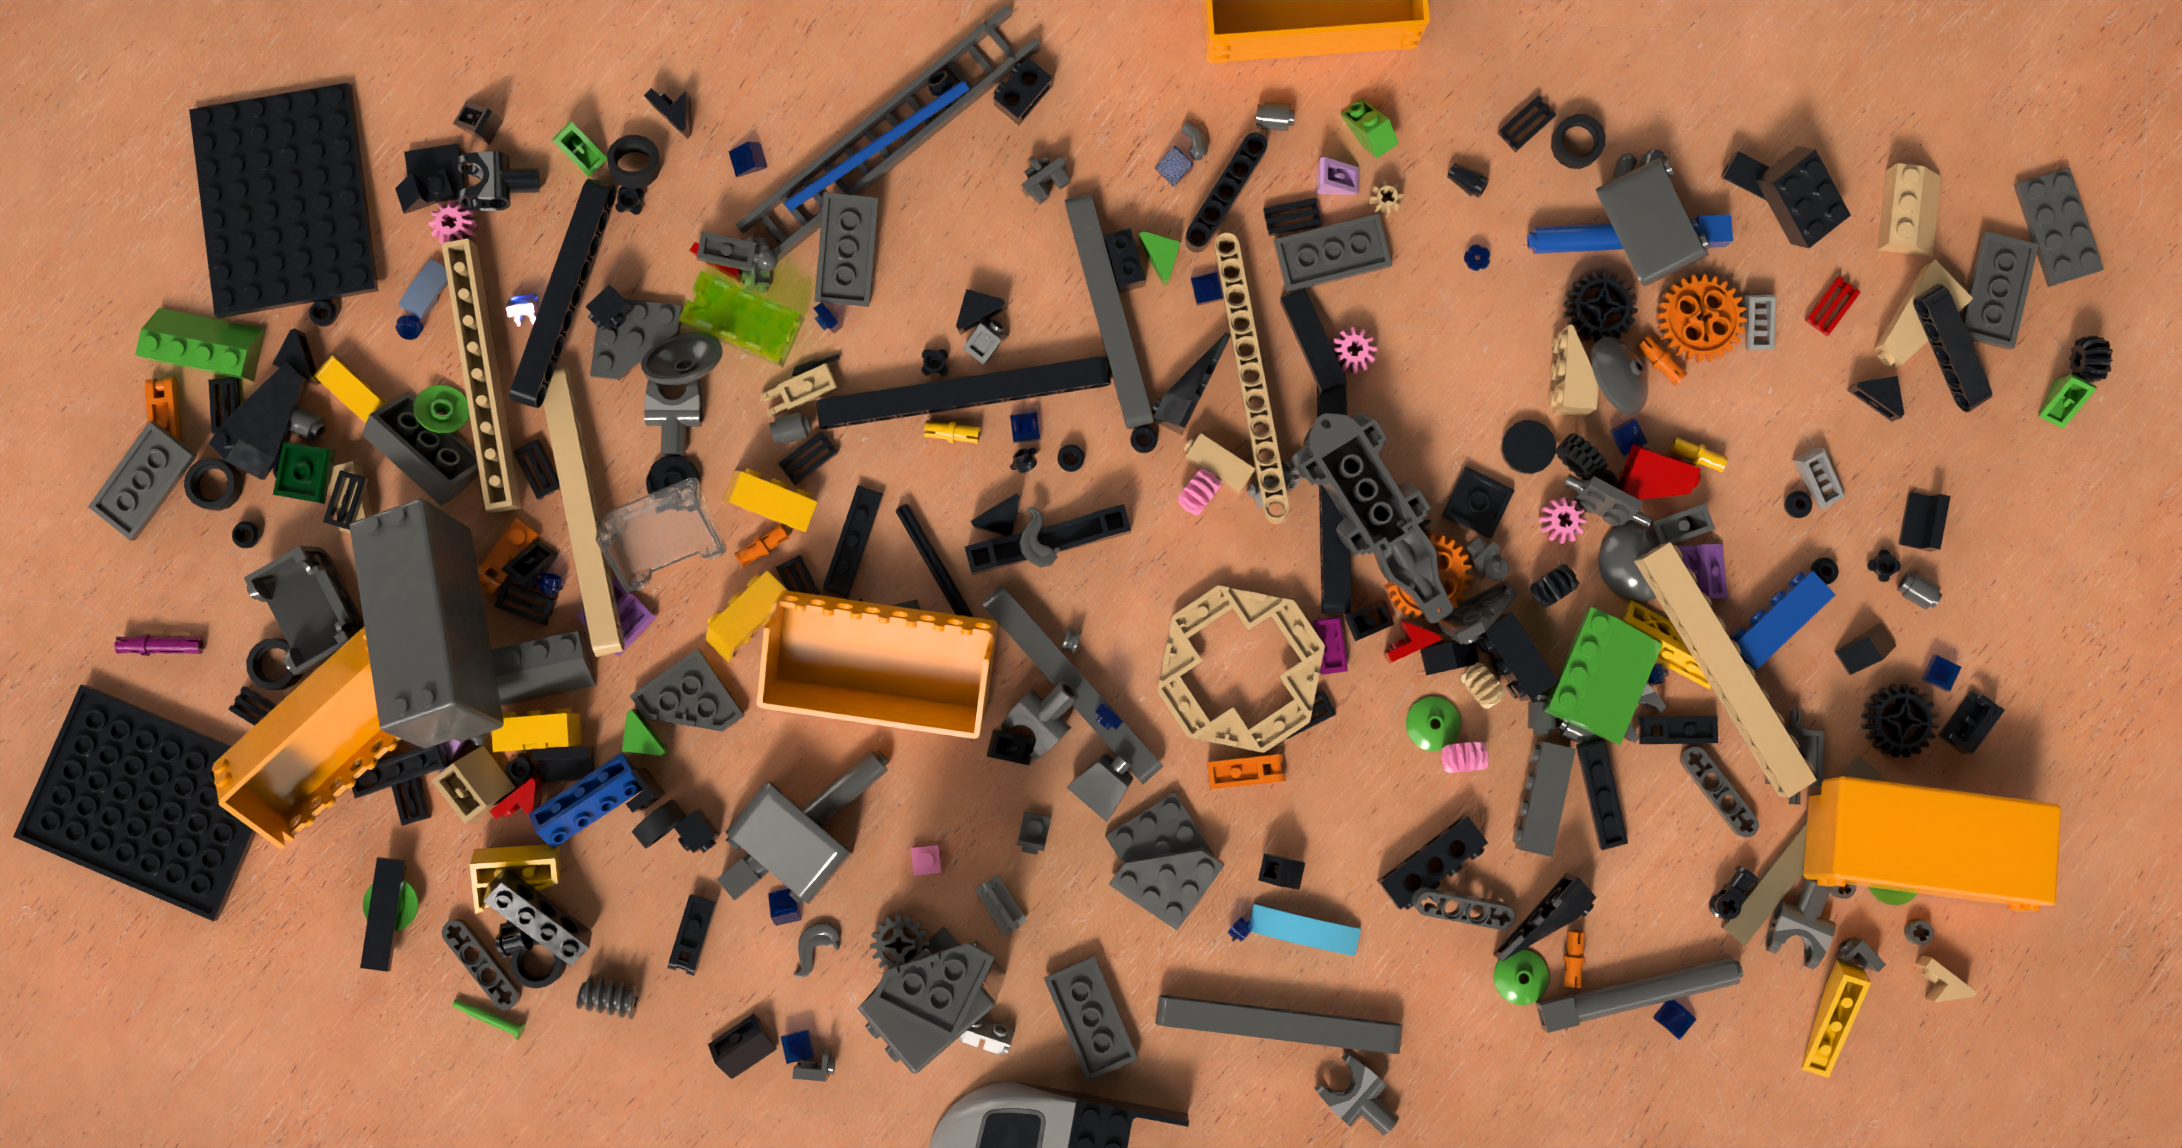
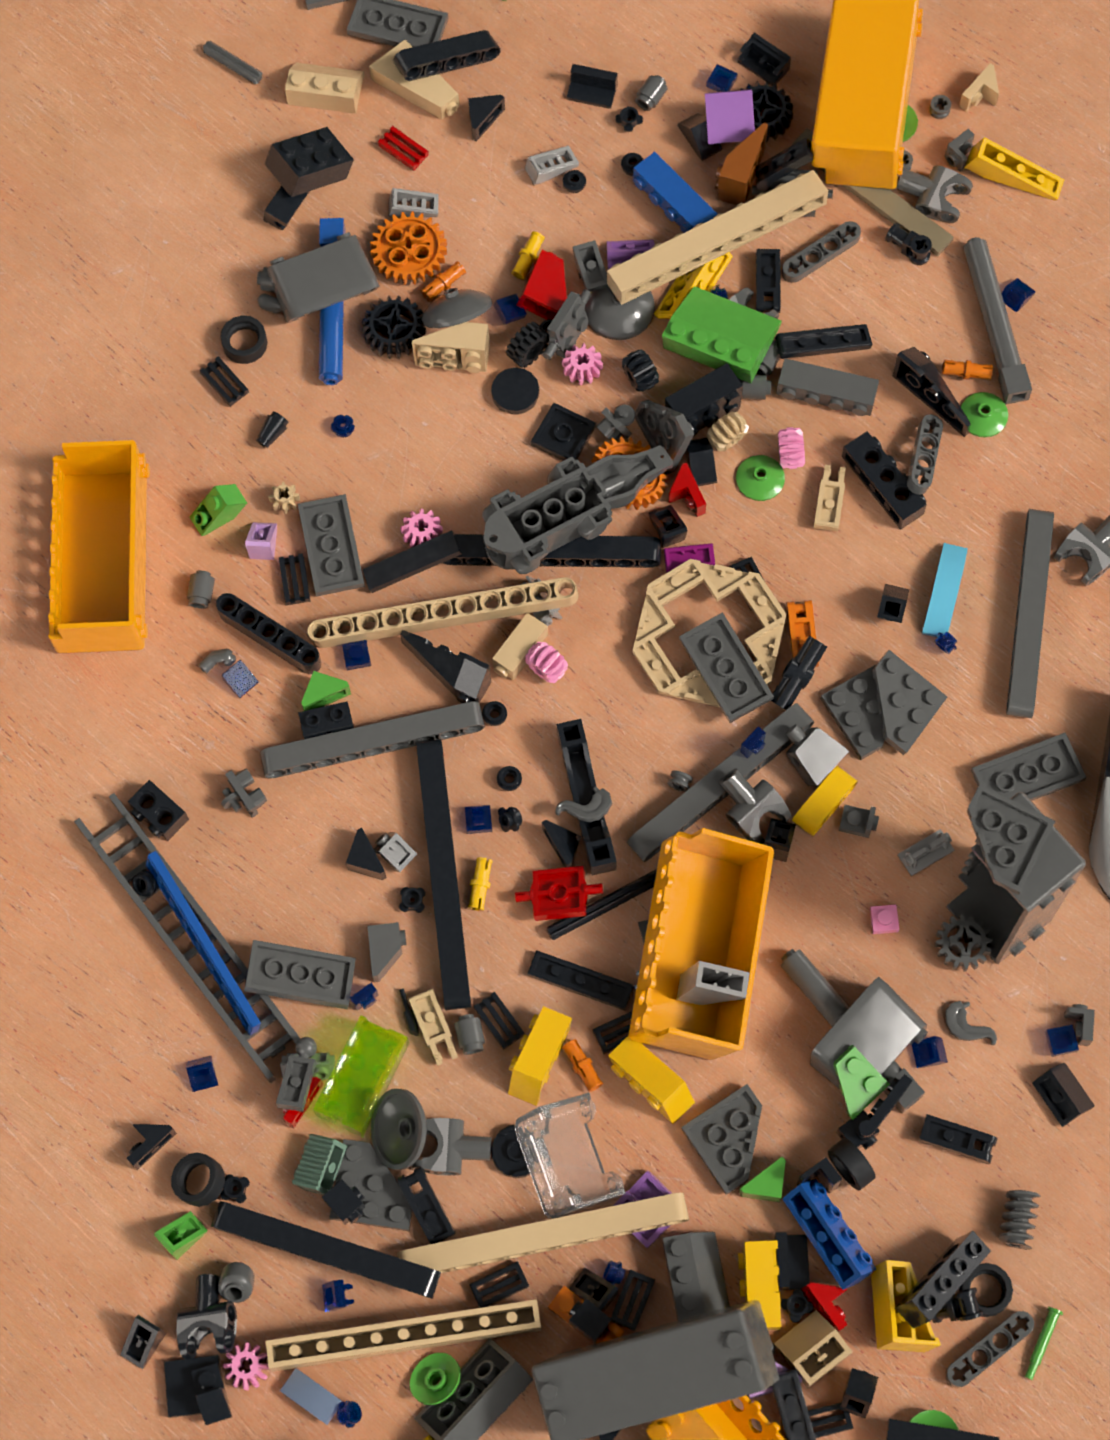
camera: 90 degrees left, 15 degrees down
(432, 831) = (858, 1393): none -> black brick
(493, 558) = (589, 1320): none -> black brick
(531, 207) = (236, 1282): none -> dark grey head
(610, 391) = (426, 1206): none -> black plate
(651, 282) = (319, 1164): none -> sand green brick
(711, 857) = (883, 1108): none -> black plate
(738, 830) = (858, 1081): none -> wing
(832, 676) = (712, 984): none -> light grey slope
(880, 335) = (385, 947): none -> dark grey slope
(942, 514) = (559, 893): none -> red plate
(1053, 796) = (825, 801): none -> yellow beam
(1195, 766) = (798, 672): none -> black piece
(1197, 687) = (726, 667): none -> dark grey plate
(1406, 801) = (830, 501): none -> tan hinge
(1819, 695) = (738, 171): none -> dark orange slope
(1823, 745) = (783, 164): none -> black plate
(1886, 682) = (729, 116): none -> medium lavender slope
(1936, 103) = (232, 62): none -> dark grey axle

